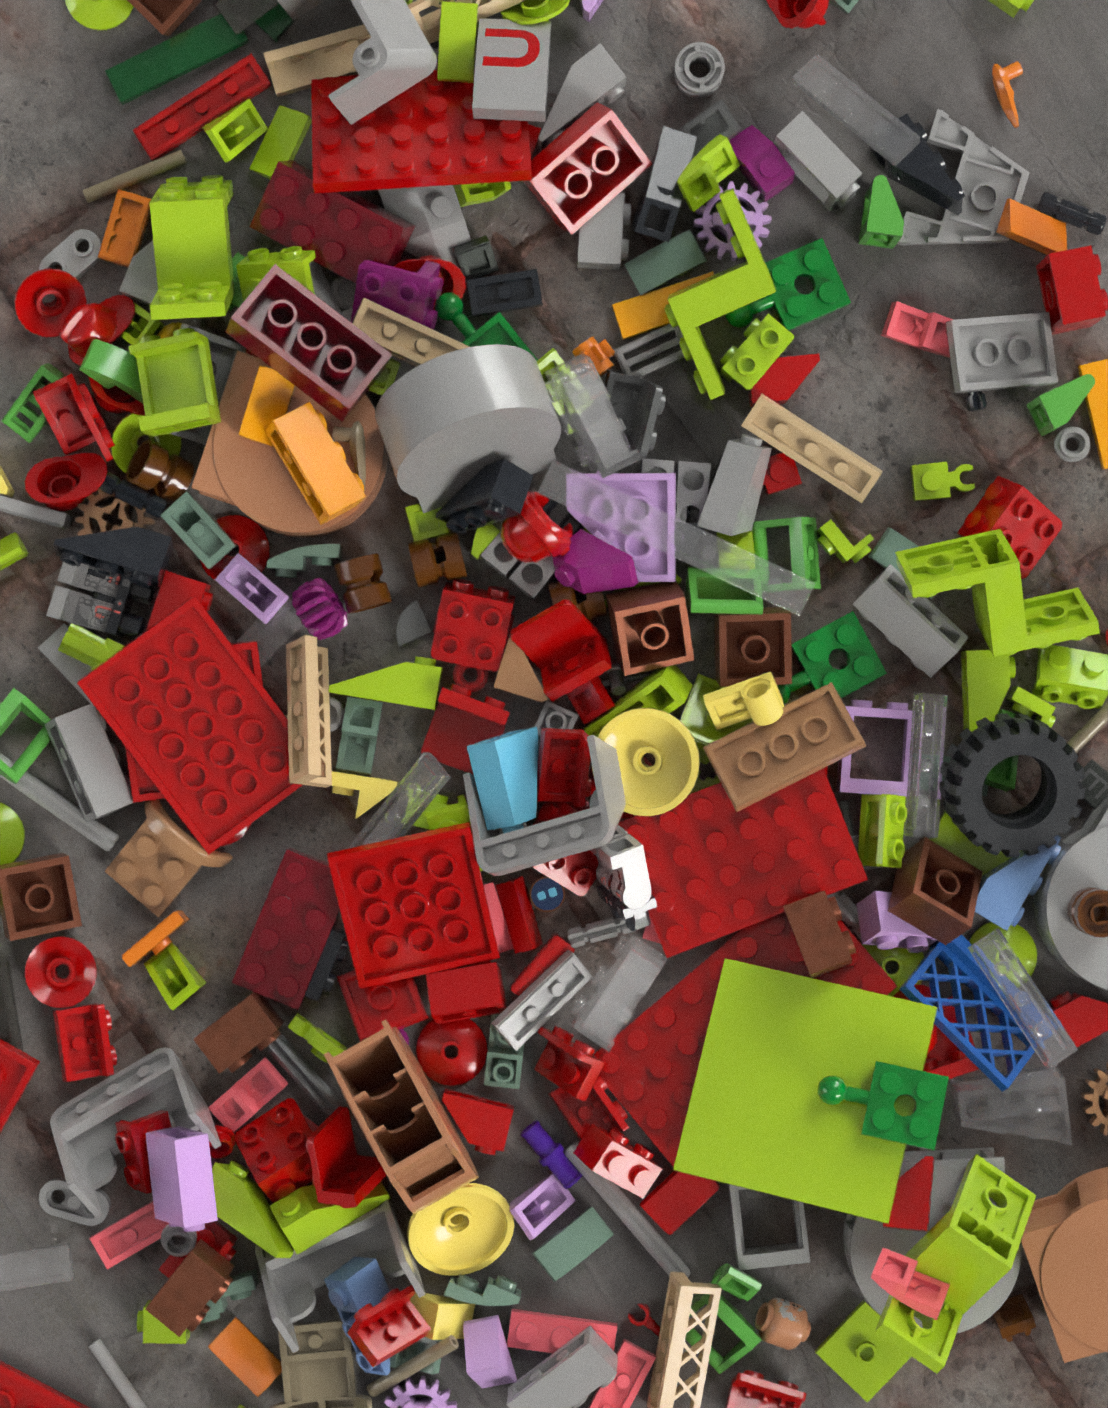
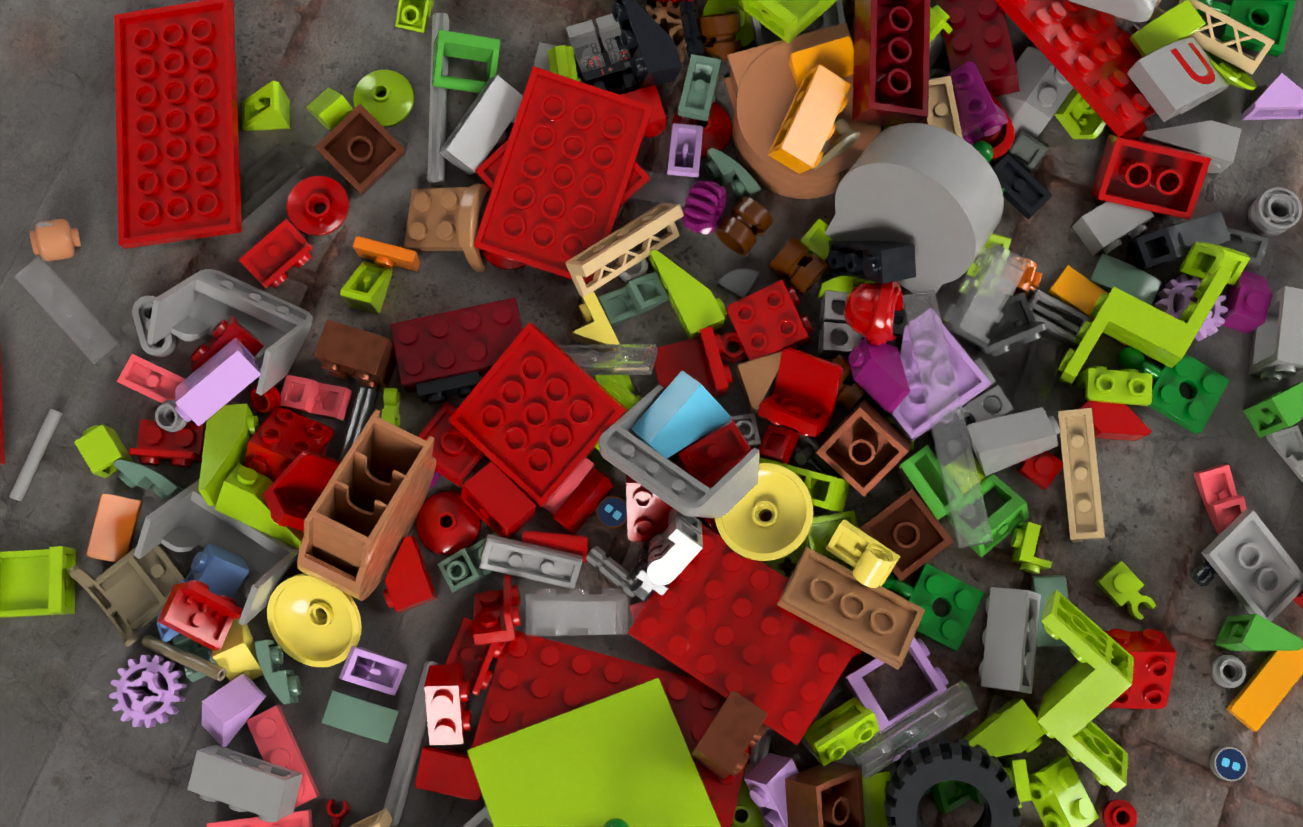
camera: 55 degrees right, 10 degrees down
(185, 1295) = (133, 443): copper brick -> none
(551, 1154) = (417, 651): dark purple pin -> none

